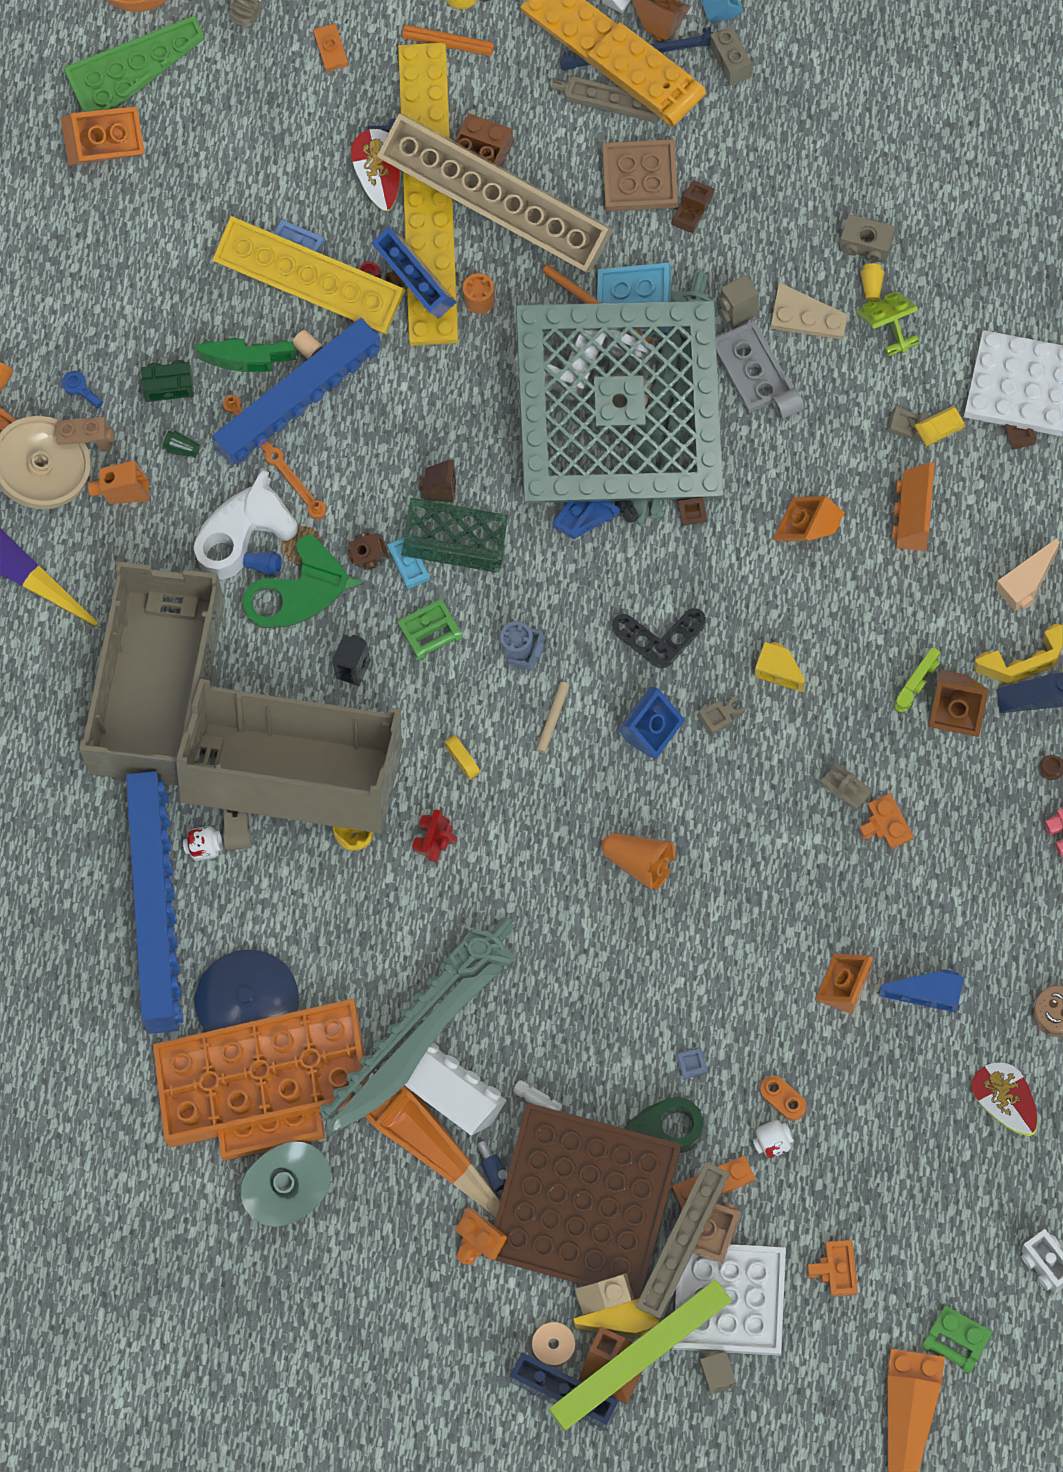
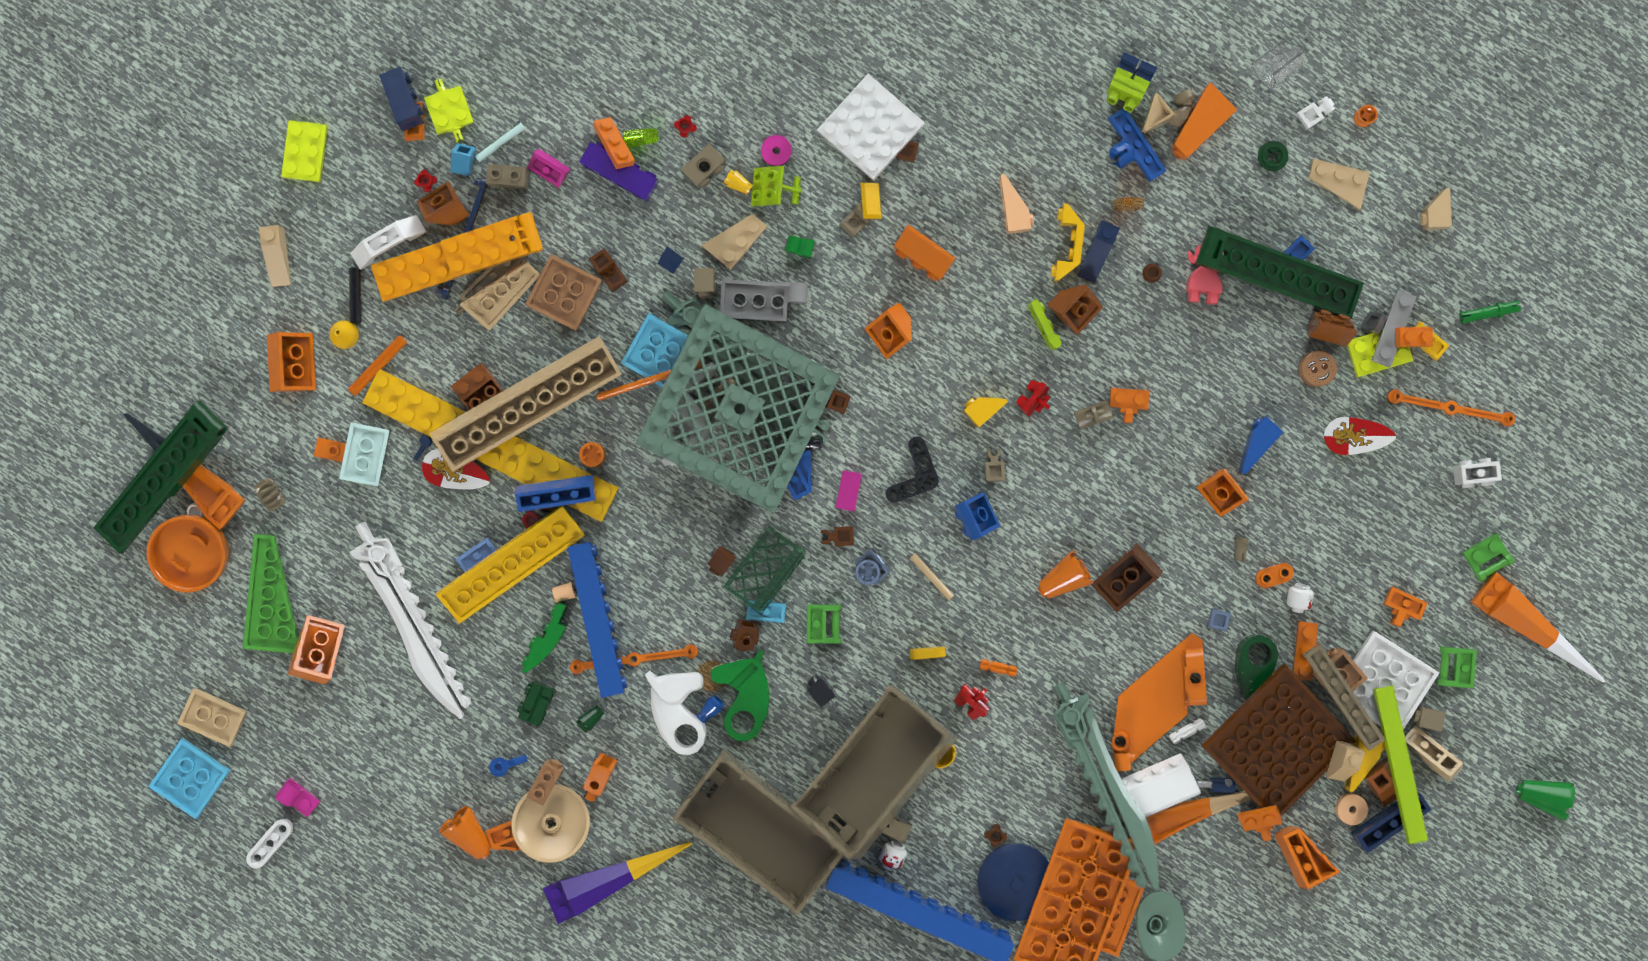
camera: 60 degrees left, 20 degrees up
(239, 148) = (387, 563): none -> white piece
(288, 940) = (1000, 835): none -> reddish brown plate
(343, 74) = (364, 454): none -> light aqua plate
(460, 1315) = (1304, 858): none -> orange wedge
(489, 845) = (998, 667): none -> orange axle
(540, 594) = (842, 536): none -> reddish brown plate
(550, 1045) = (1158, 701): none -> orange panel
(593, 113) = (499, 296): none -> tan wing
(598, 577) = (848, 490): none -> dark pink slope
(677, 1403) = (1433, 754): none -> tan slope
(680, 928) = (1127, 577): none -> reddish brown slope
(743, 261) = (670, 260): none -> dark blue slope
(764, 32) = (500, 142): none -> light aqua bar
(767, 92) = (548, 168): none -> dark pink slope
(792, 1040) = (1240, 549): none -> dark tan pin
(804, 1382) = (1463, 667): none -> bright green plate
(807, 161) = (629, 178): none -> dark purple brick
(825, 717) = (1037, 400): none -> red hips
(834, 135) = (613, 143): none -> orange plate
(841, 381) = (799, 246): none -> green leg
(858, 160) = (640, 136): none -> clear neon green hinge
(904, 194) = (686, 120): none -> red plate
(933, 293) = (782, 157): none -> dark pink piece

